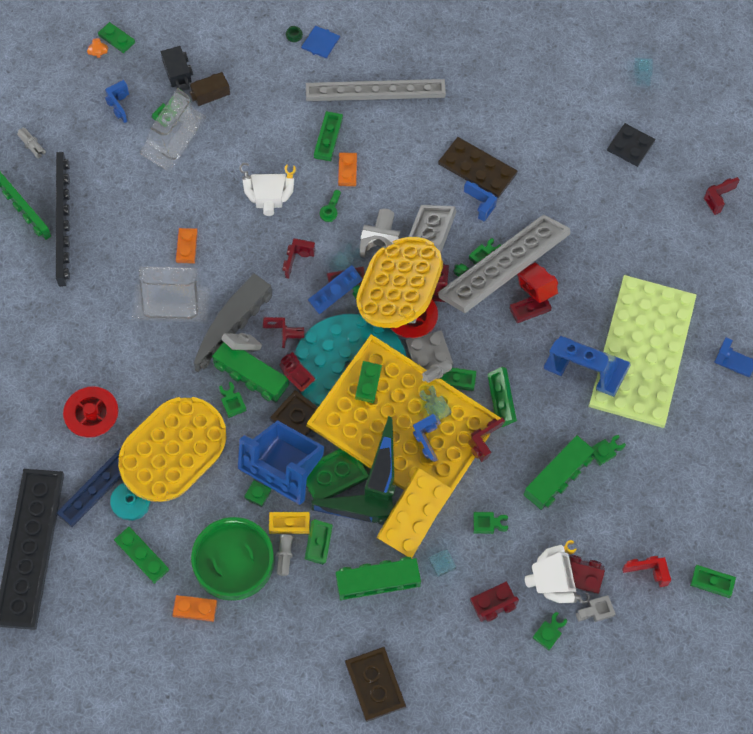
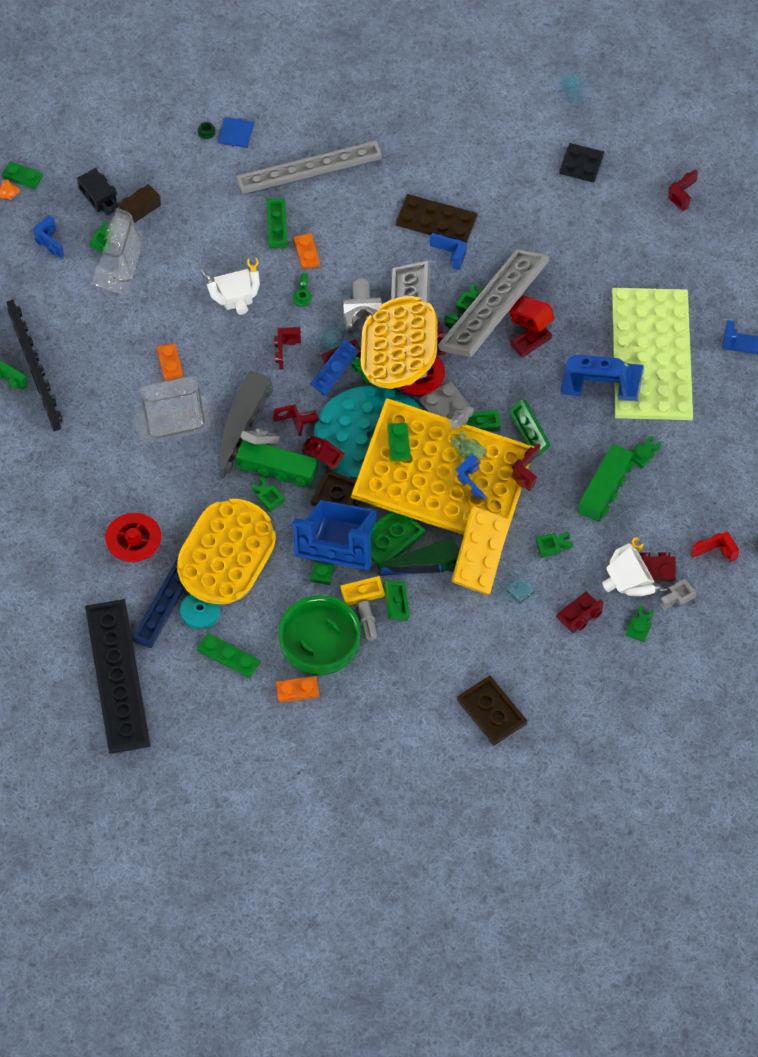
camera: 15 degrees left, 5 degrees down
(378, 578) = (464, 618): green brick -> none
(381, 477) = (440, 519): slope -> none

